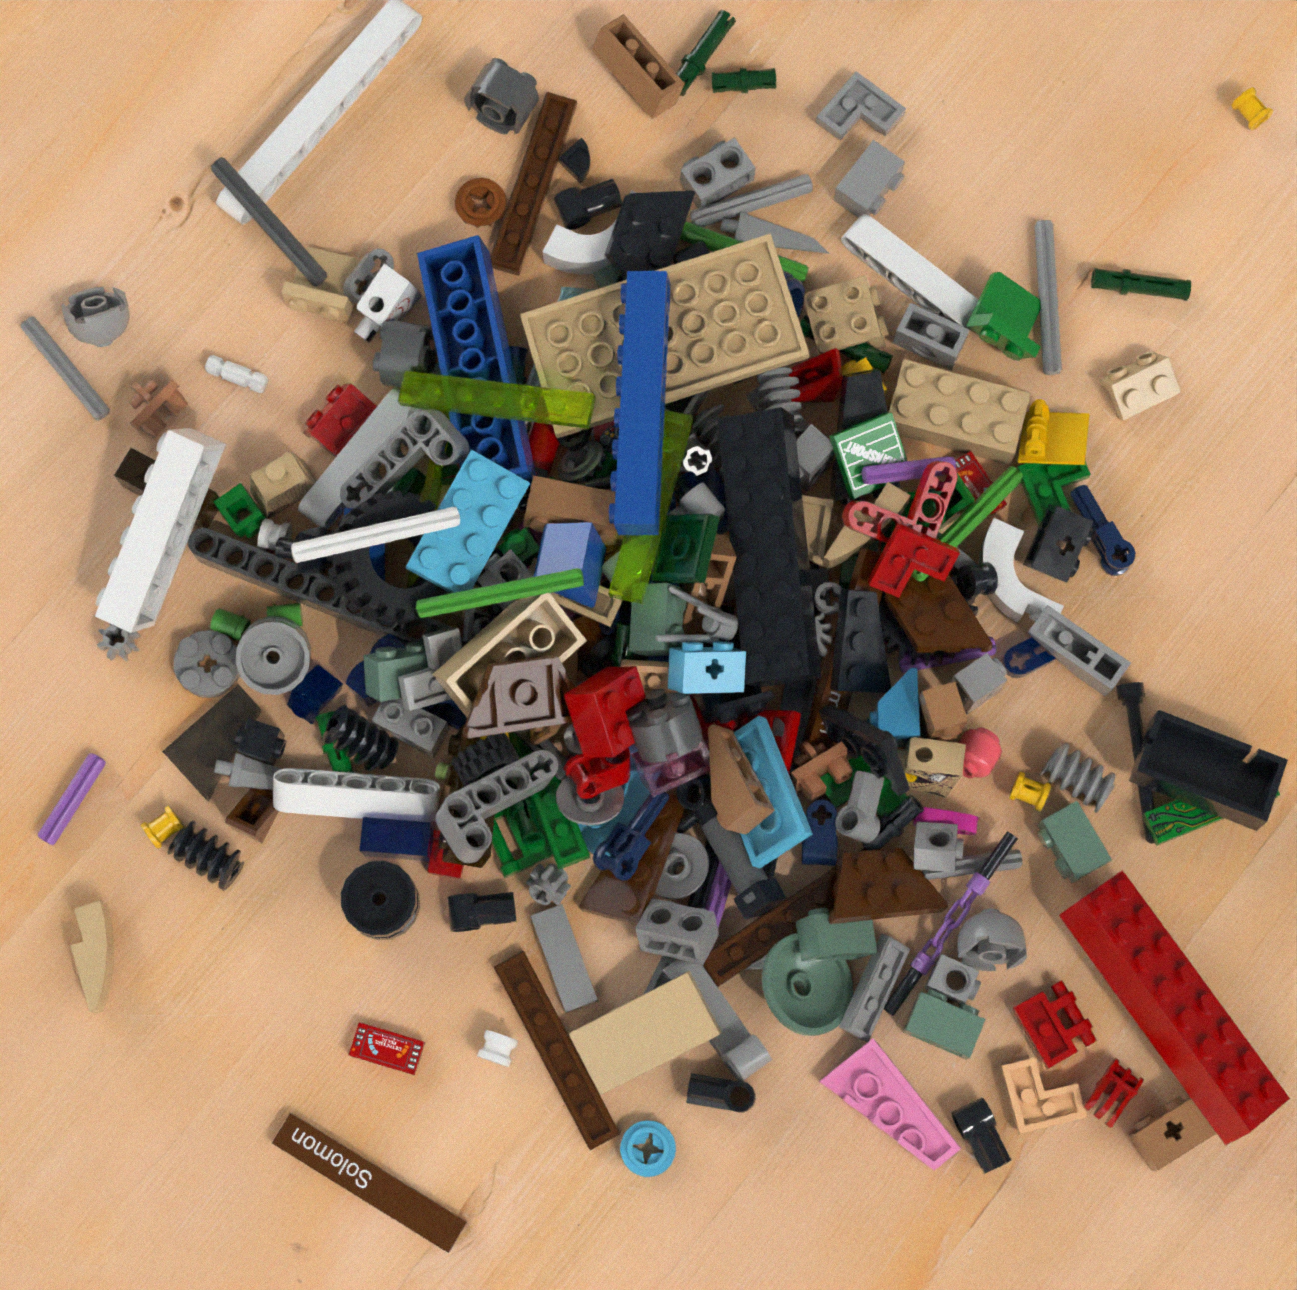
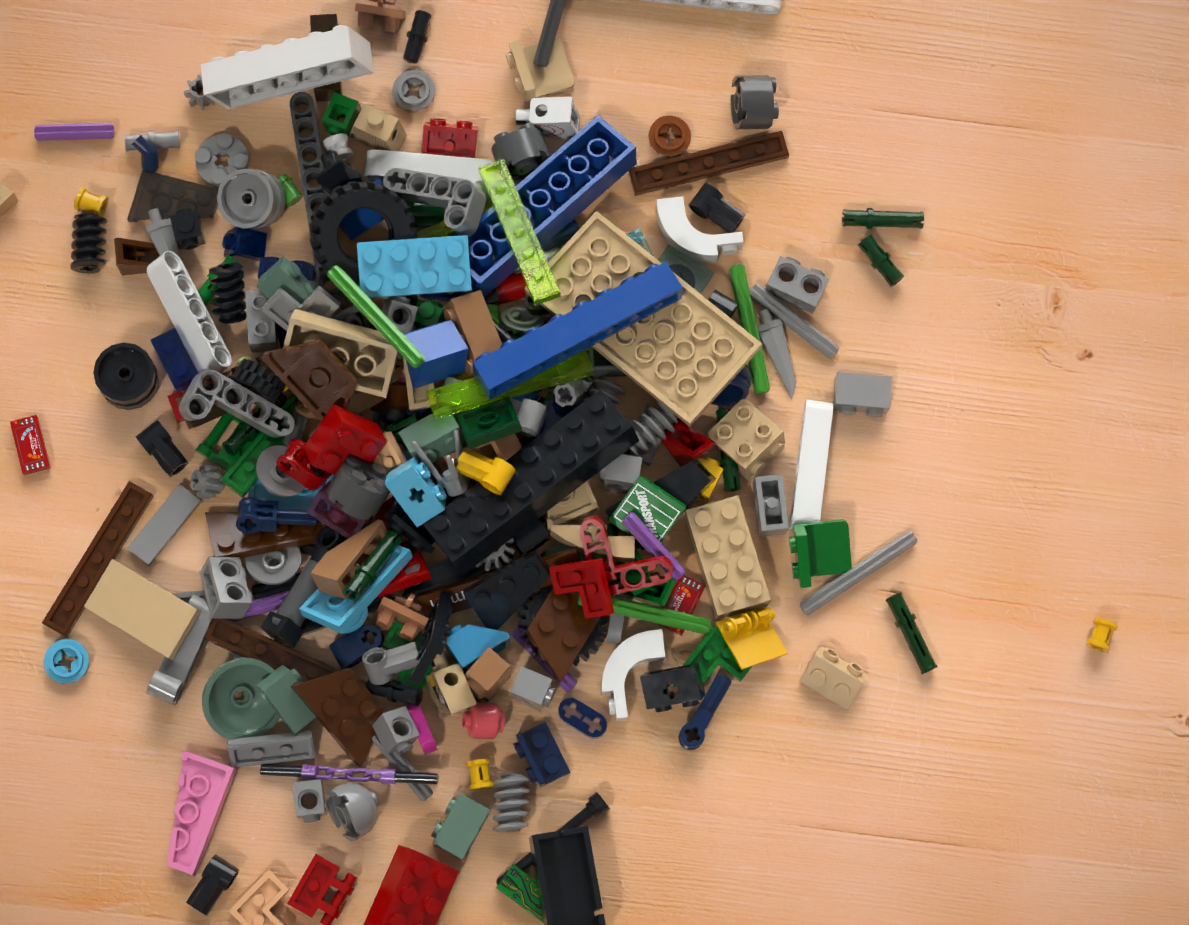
camera: 50 degrees right, 0 degrees up
(137, 723) = (157, 140): none -> light grey pin
(152, 733) = (149, 154): none -> dark blue arm
(206, 385) = (416, 36): none -> black axle
(229, 623) = (258, 157): bright green piece -> none
(236, 374) = (438, 51): white axle -> none
(251, 415) = (415, 79): none -> light grey gear
(362, 272) = (566, 87): light grey beam -> none
(375, 534) = (361, 207): white axle -> none
(497, 1048) = (73, 517): white wheel -> none
(576, 160) = (745, 183): black tile -> none
(638, 66) = (839, 180): medium nougat brick -> none
(648, 230) = (717, 262): black wing -> none
(716, 1093) = (133, 685): black piece -> none
(742, 578) = (490, 473): none -> yellow piece
(761, 769) = (366, 573): none -> dark green pin
(821, 604) = (526, 538): light grey bush -> none
(859, 100) = (919, 348): light grey plate -> none
(944, 1024) = (274, 812): sand green brick -> none
(977, 579) = (607, 644): black wheel -> none
(1045, 718) = (541, 754): none -> dark blue bracket
(1079, 651) = (601, 745): light grey slope -> none

